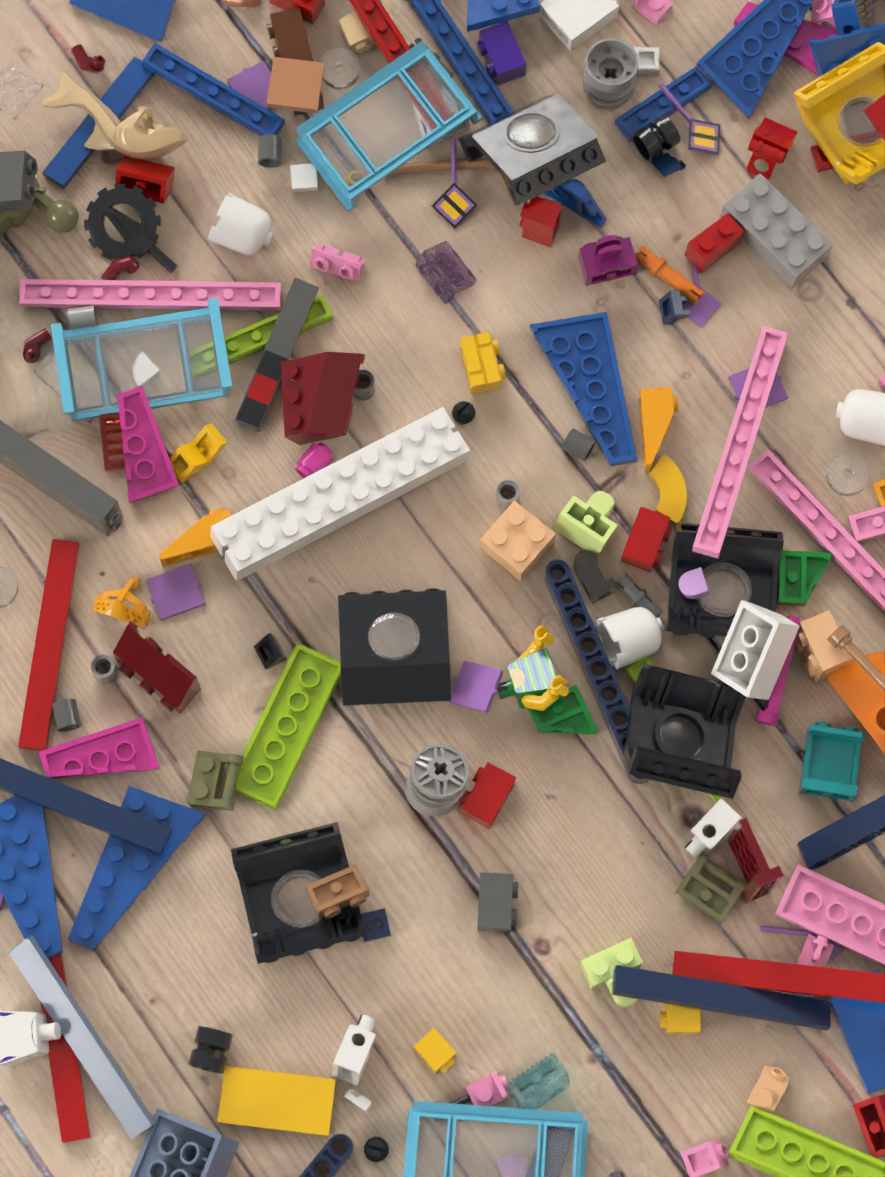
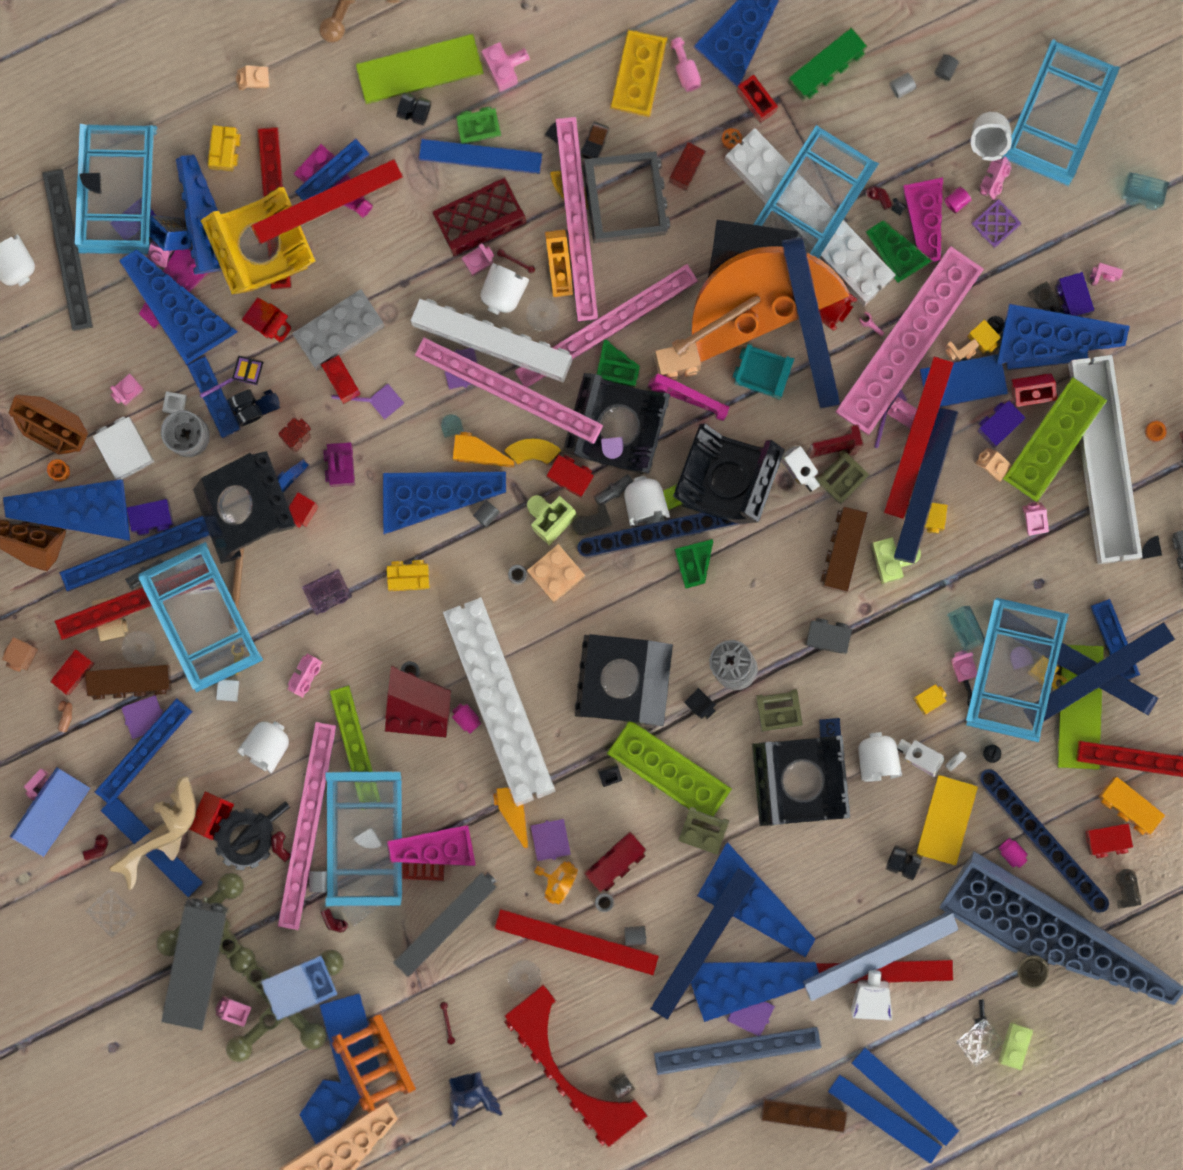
camera: 85 degrees left, 10 degrees up
(105, 752) = (668, 910): dark pink wing -> none
(196, 455) = (443, 807): yellow slope -> none
(269, 151) = (202, 714): dark grey beam -> none
(278, 349) = (374, 733): tile -> none
(295, 85) = (154, 684): nougat tile -> none
(337, 892) = (804, 751): medium nougat bracket -> none
(344, 992) = (879, 758): none -> white cylinder
(379, 751) = (700, 704): none -> black bracket
(379, 856) = (779, 717): none -> olive plate
(454, 203) = (270, 575): piece -> none
(463, 412) = (444, 597): black piece -> none
(476, 686) = (664, 623): medium lavender piece -> none
(487, 795) = (748, 629): red brick -> none
(534, 676) = (665, 579): torso -> none
(616, 905) = (844, 550): none -> reddish brown brick
(634, 198) = (295, 434): none -> clear red brick
(659, 268) = (359, 419): orange pin -> none
(672, 308) = (387, 422): dark blue tile -> none
(683, 386) = (451, 425): none -> clear light blue tile
(755, 650) = (676, 411): white slope -> none
(800, 414) = (492, 340): none -> white brick
(825, 1089) = (1001, 424): none -> dark purple brick

